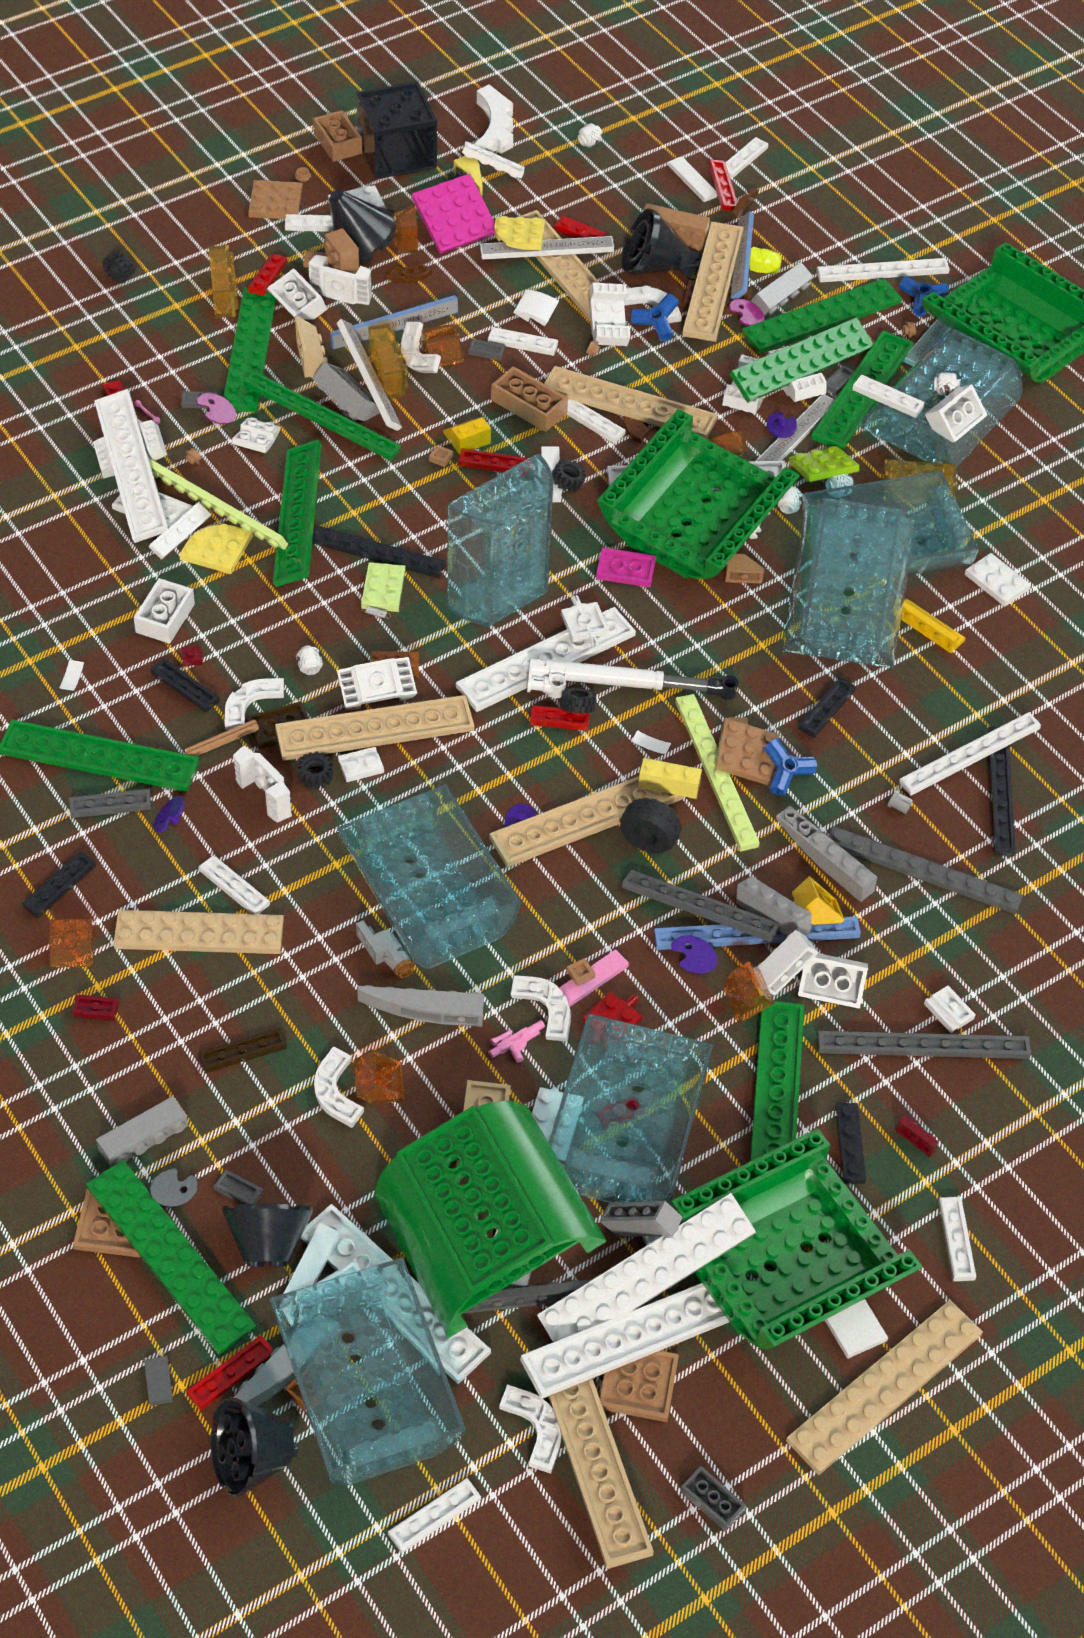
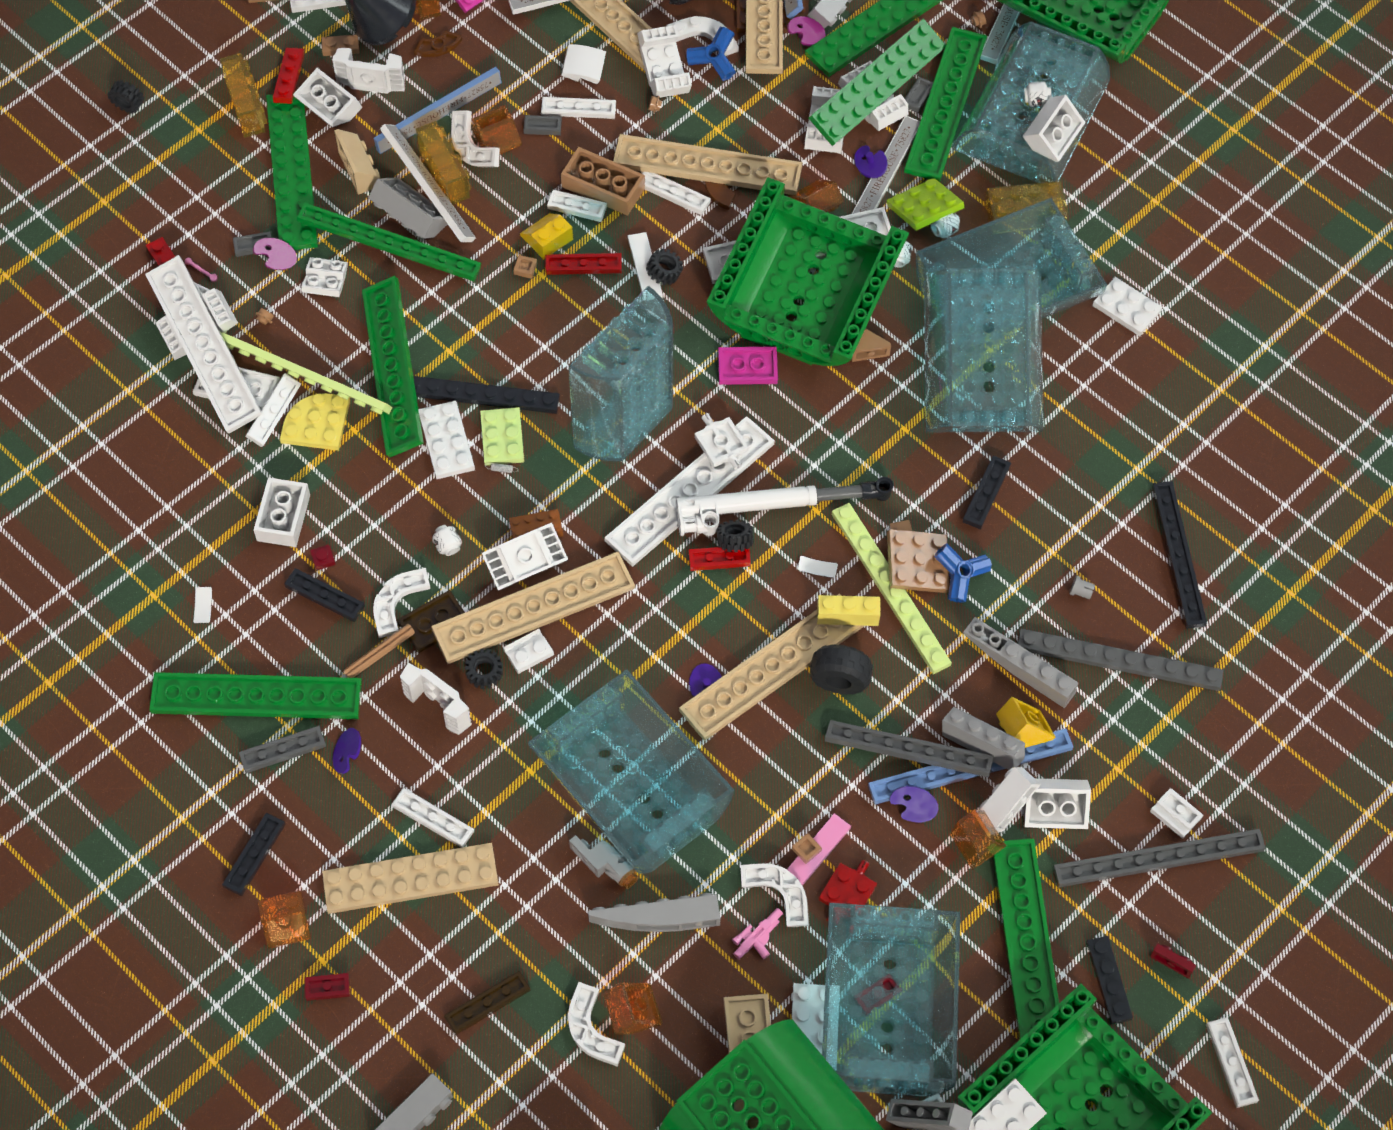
camera: 10 degrees left, 10 degrees up
(331, 581) = (446, 440): none -> white plate
(341, 251) = (365, 41): medium nougat brick -> none
(501, 416) = (577, 205): none -> white plate
(888, 396) = (980, 119): white plate -> none
(931, 626) = (1073, 376): yellow fence -> none
(969, 753) = (1140, 519): white tile -> none

